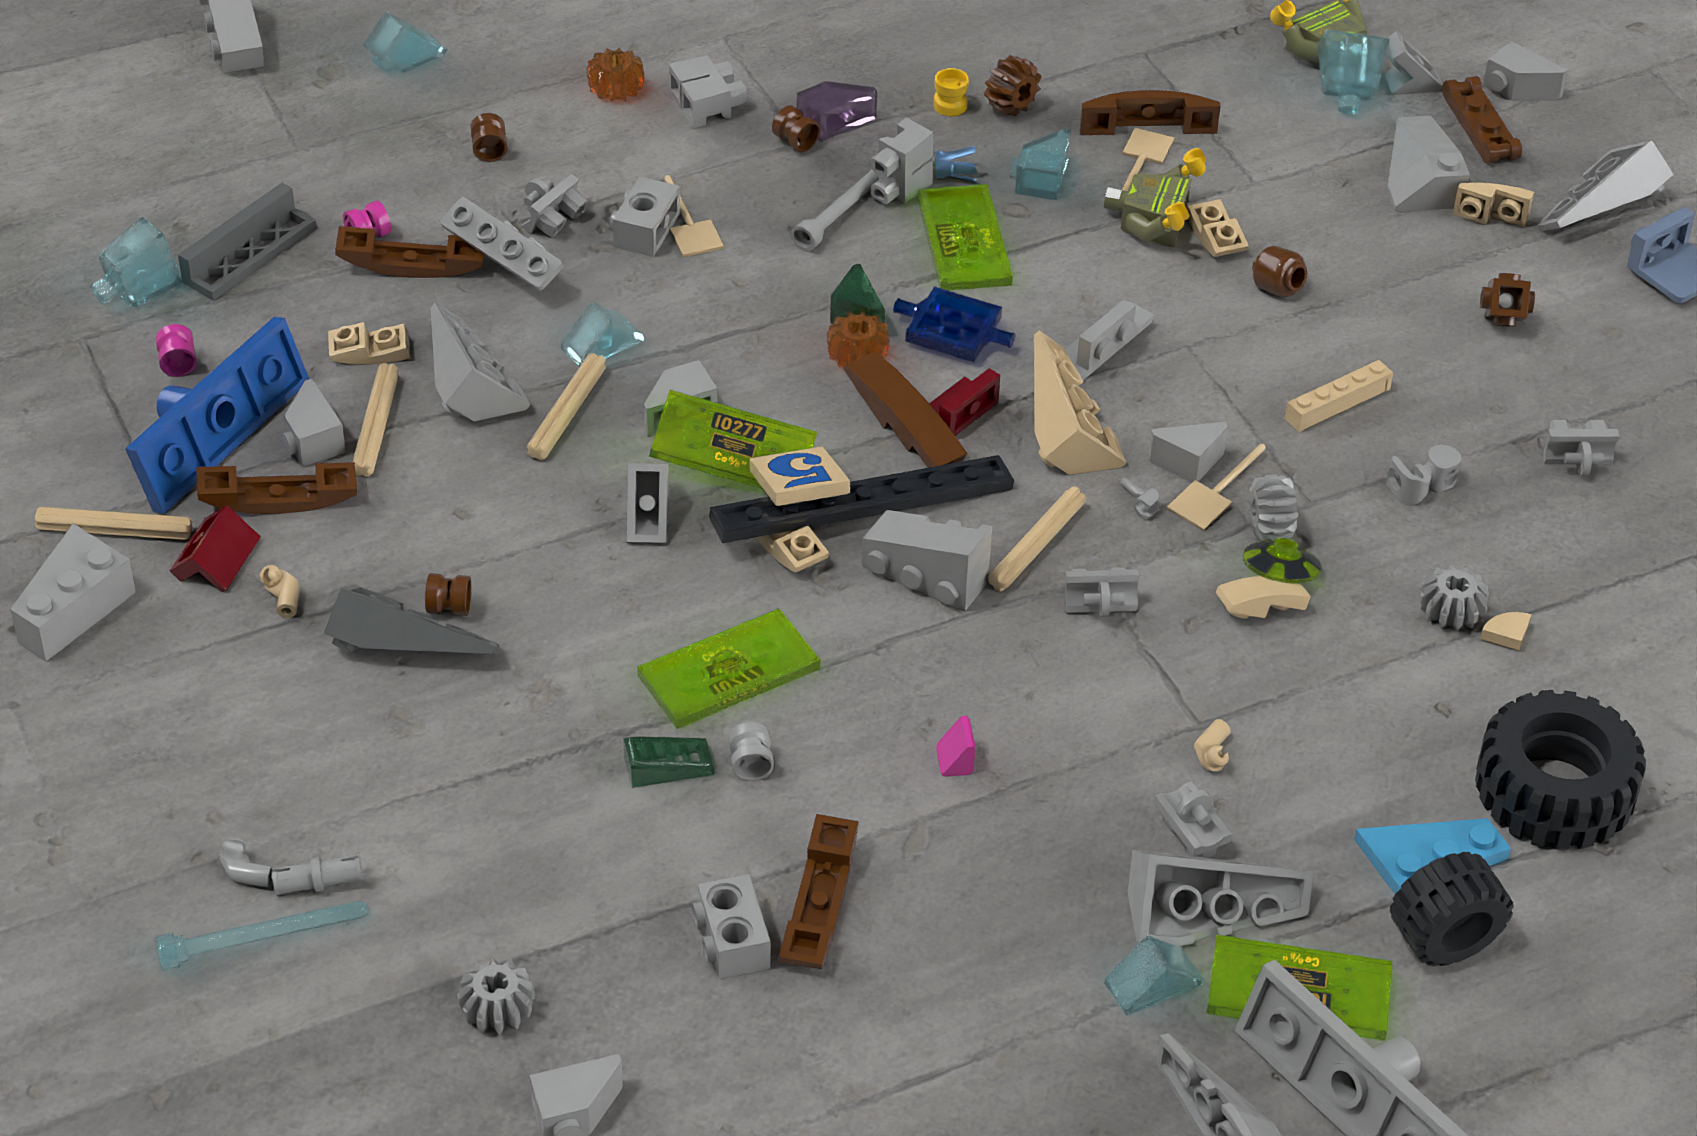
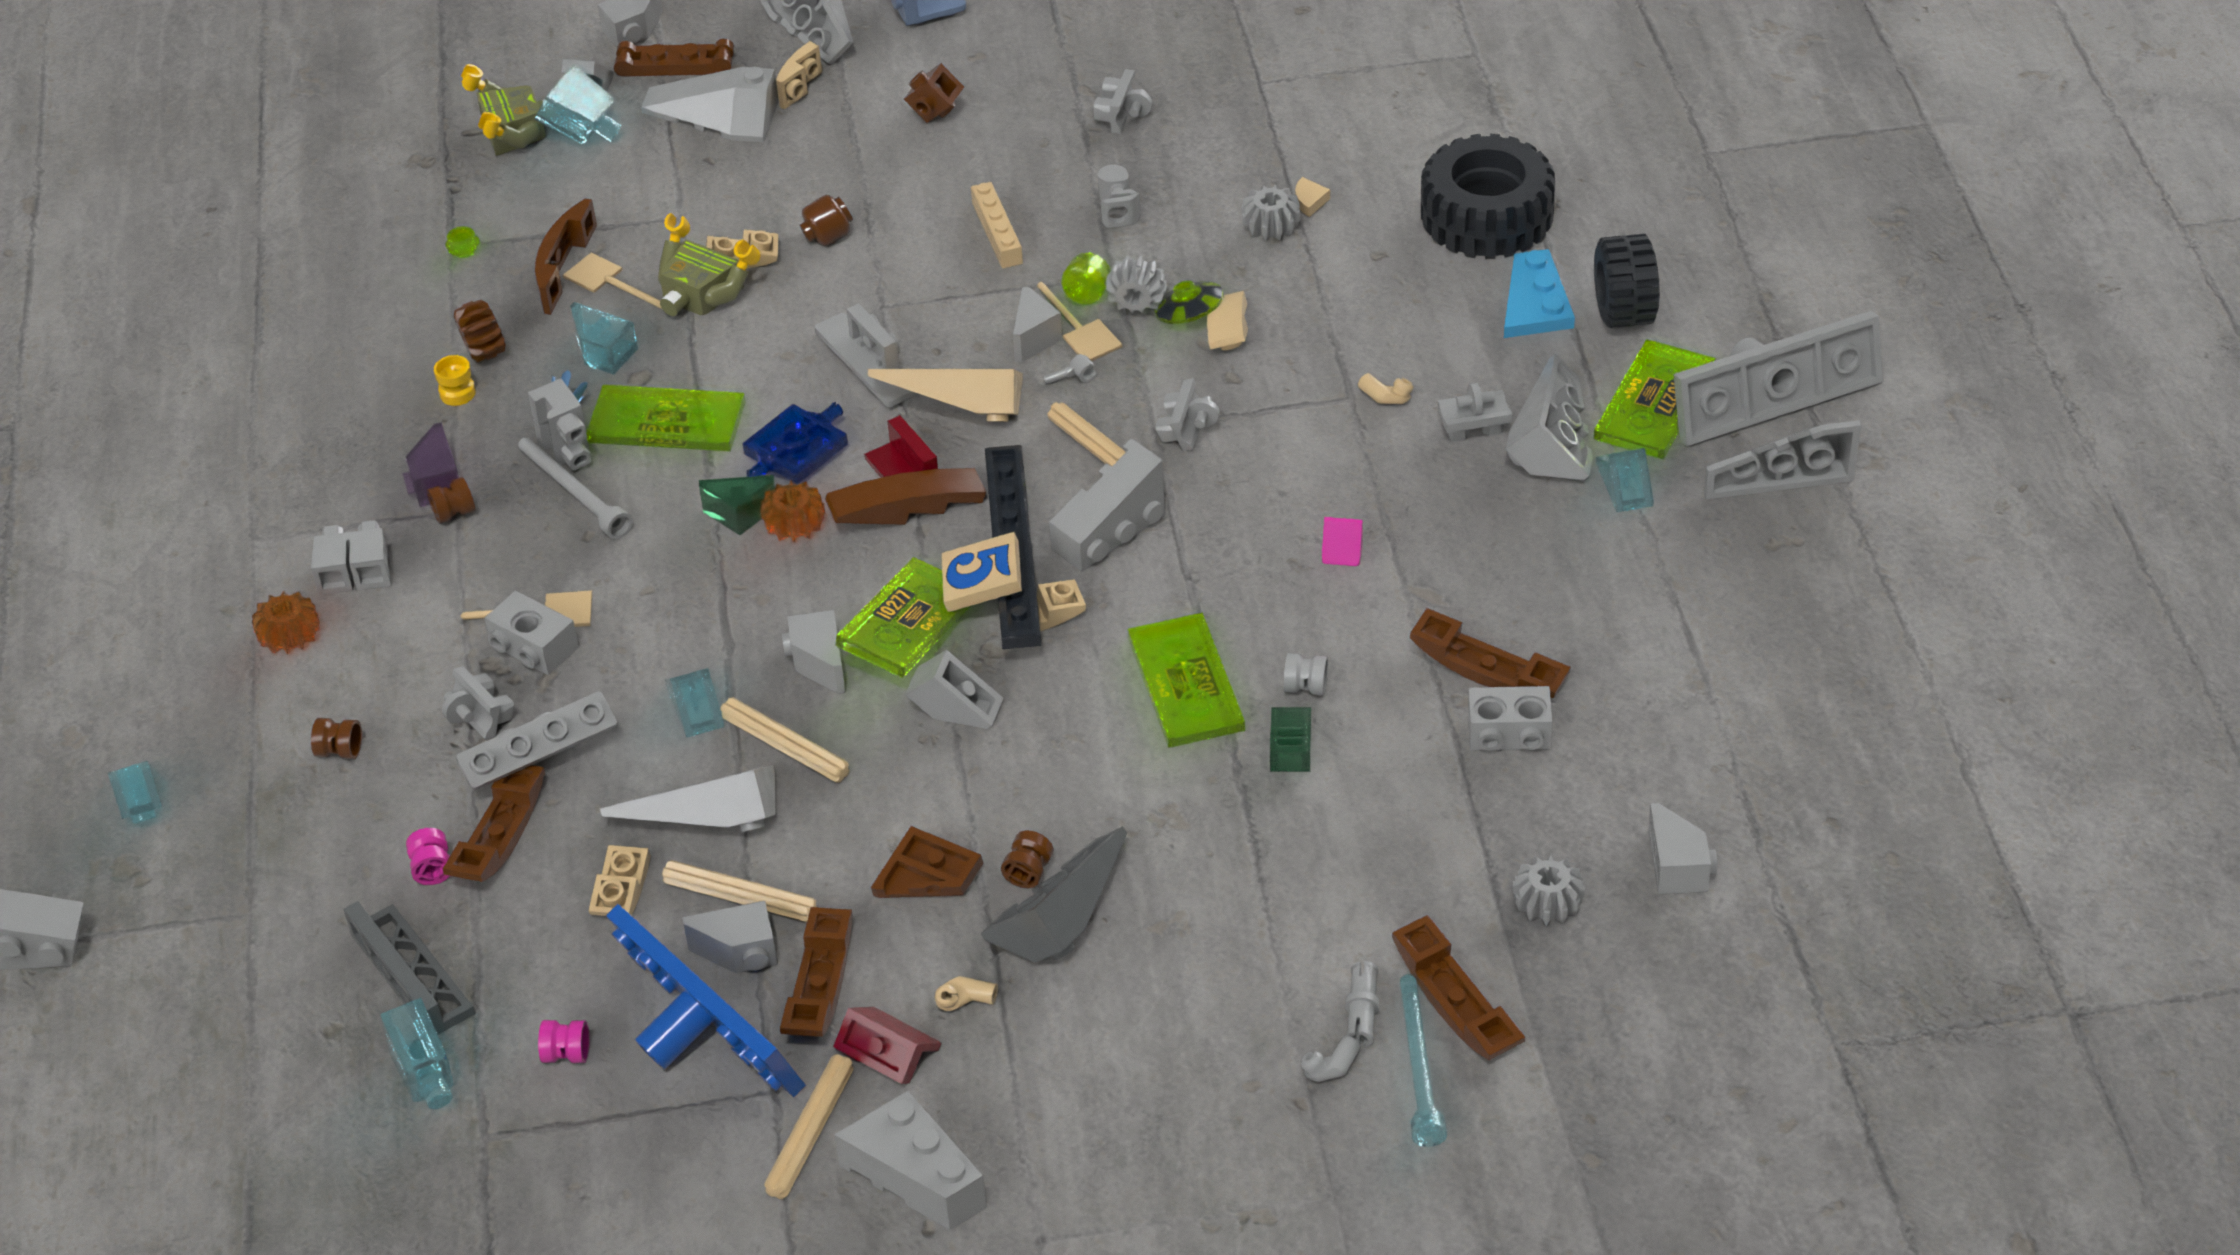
camera: 70 degrees left, 0 degrees up
(348, 946) = (1452, 991): none -> reddish brown slope
(428, 530) = (927, 868): none -> reddish brown wing
(1143, 52) = (462, 242): none -> clear neon green plate
(1279, 462) = (1085, 278): none -> clear neon green head

